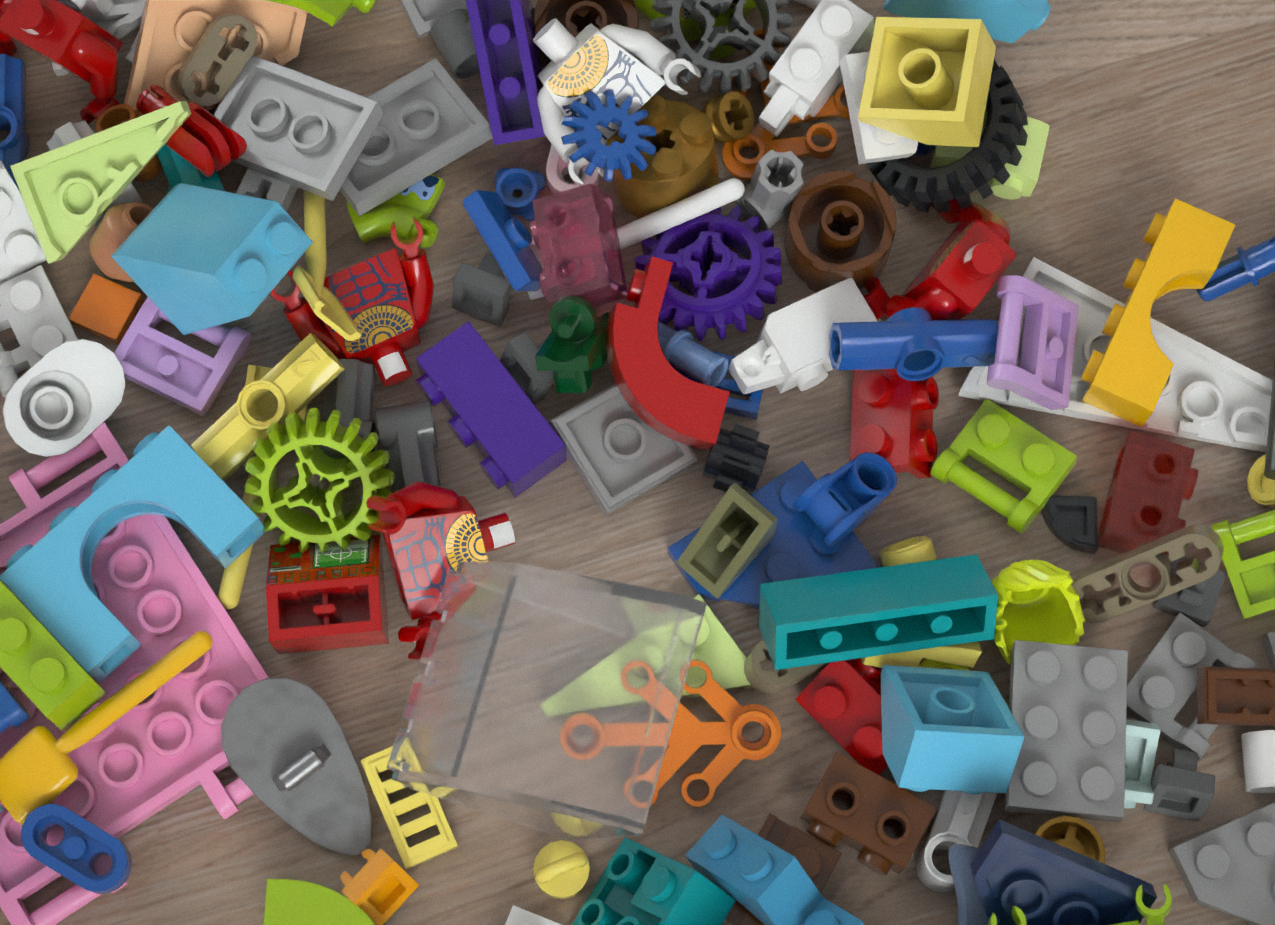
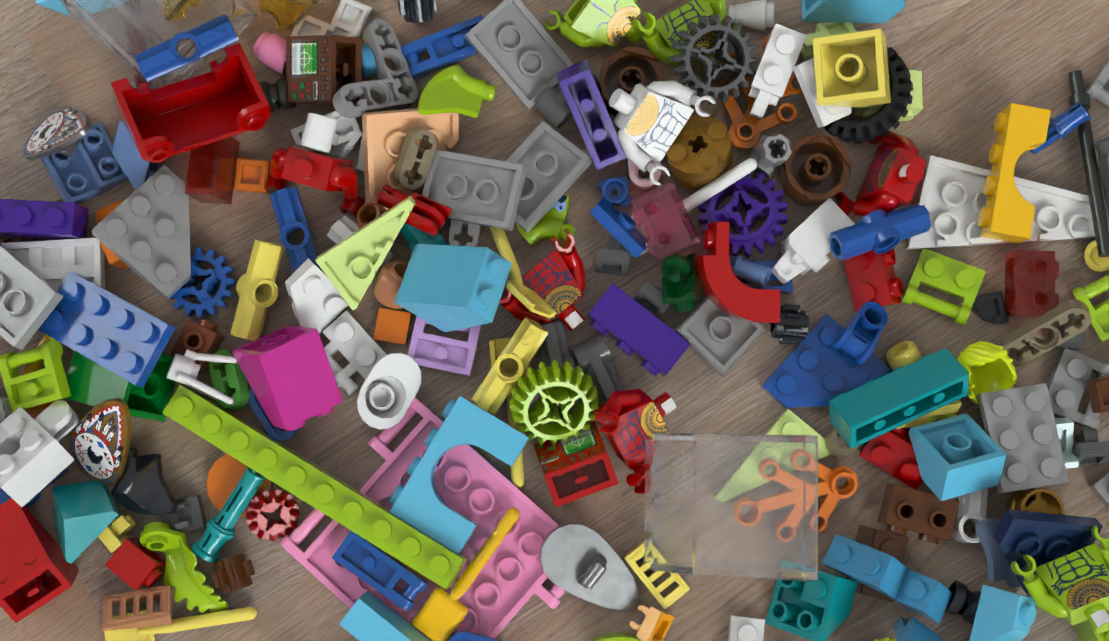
camera: 10 degrees left, 10 degrees up
(561, 869) = (752, 589): light yellow tile -> none
(588, 137) = (659, 158): blue gear -> none
(728, 541) = (801, 377): olive slope -> none
(740, 113) = (731, 114): pearl gold bush -> none
(1046, 343) = (948, 212): lavender plate -> none

